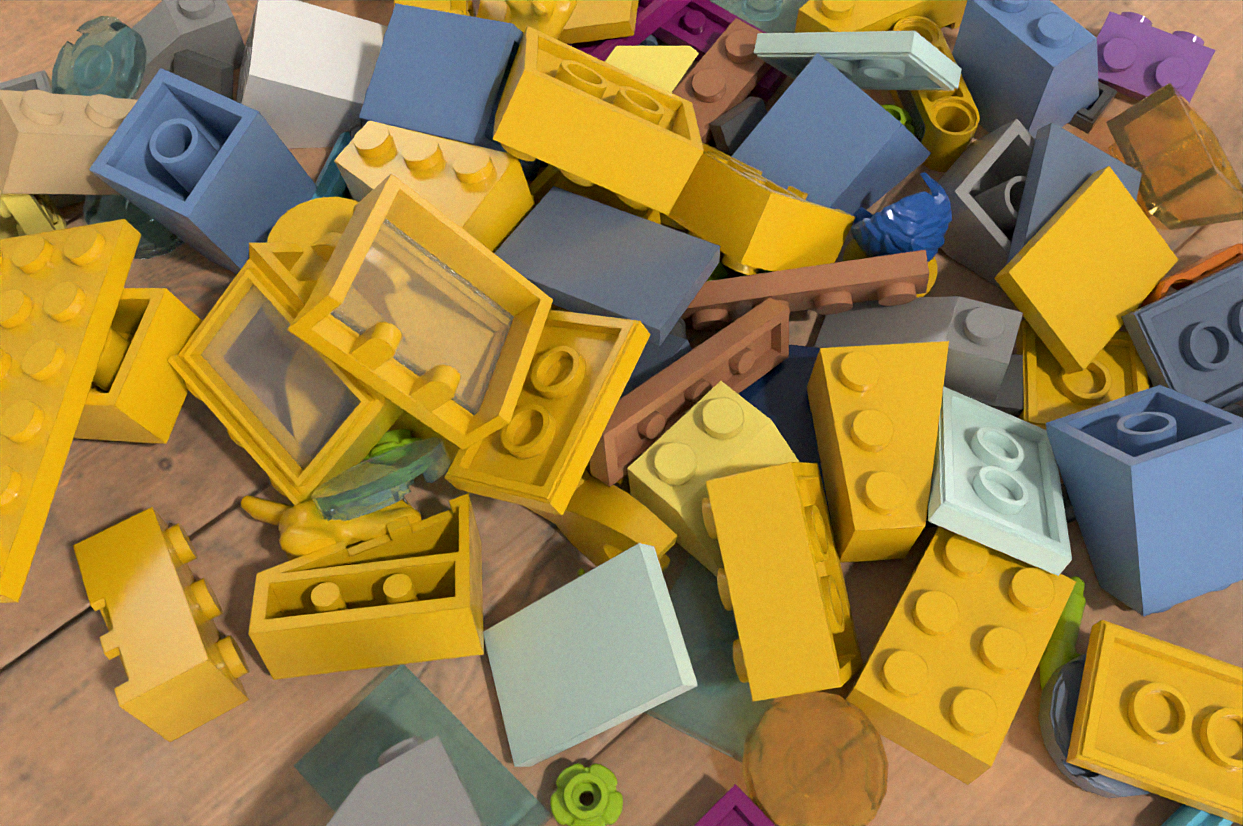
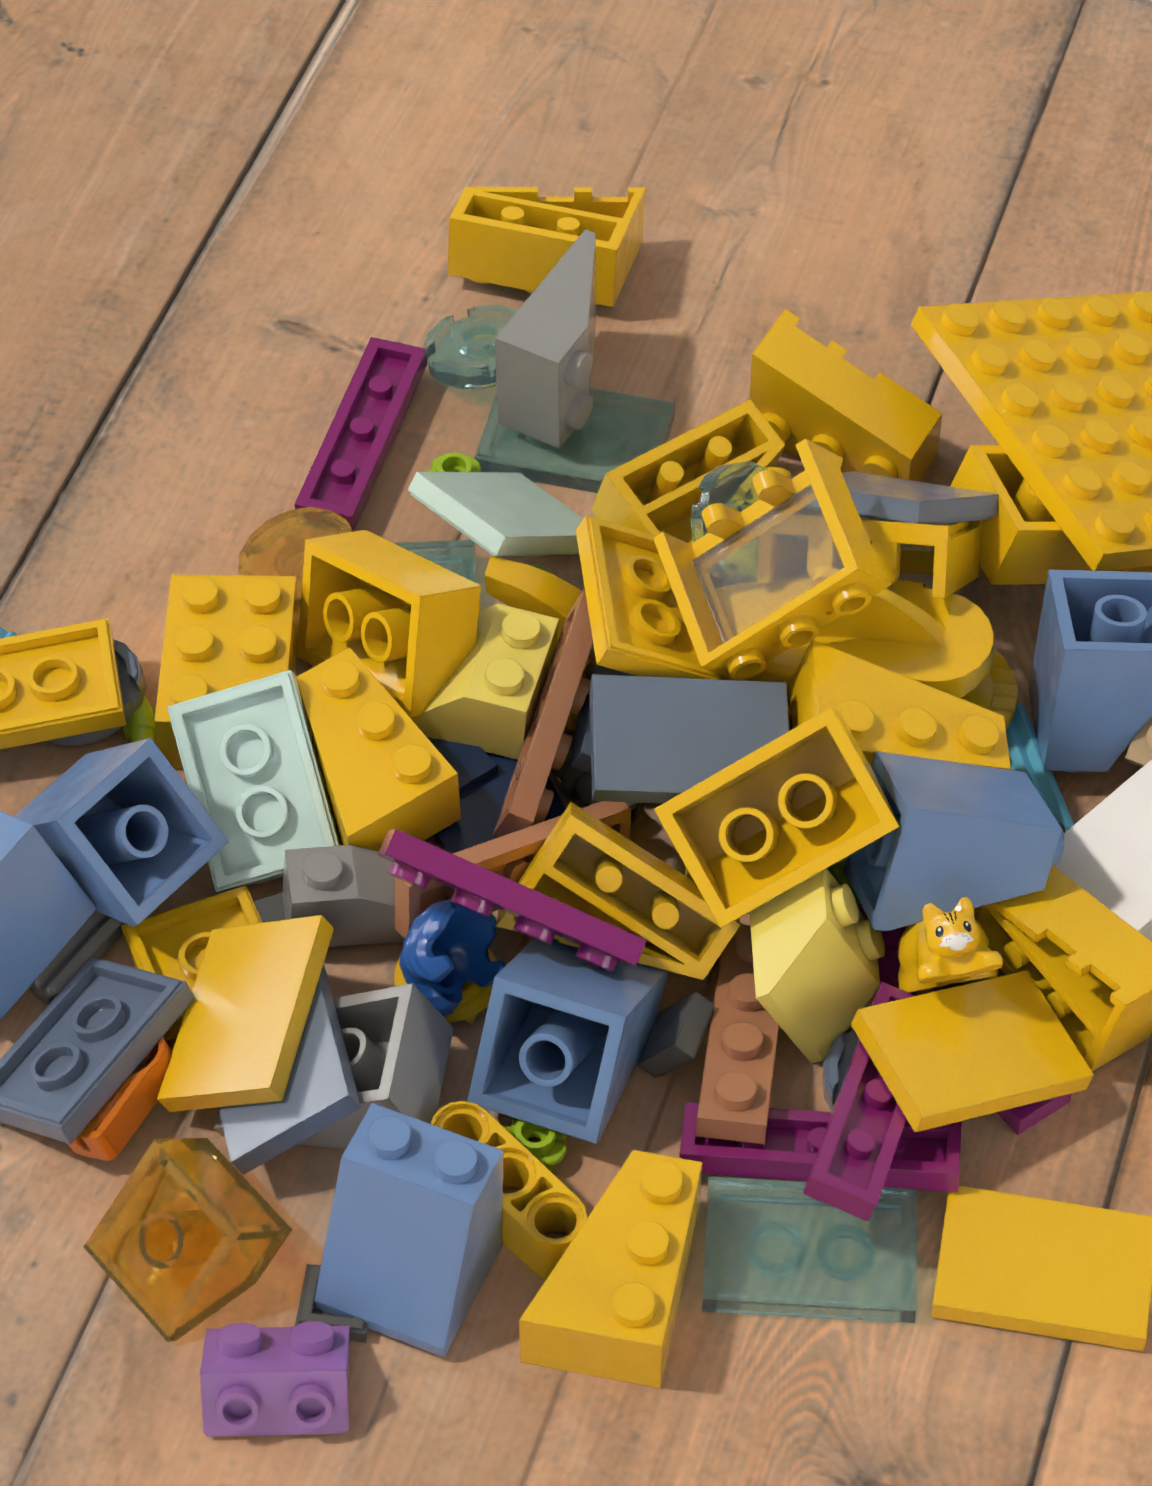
camera: 150 degrees right, 10 degrees down
(239, 406) = (916, 501): none -> sand blue tile
(862, 176) = (536, 913): none -> magenta plate
(867, 58) = (589, 1092): light aqua tile -> none

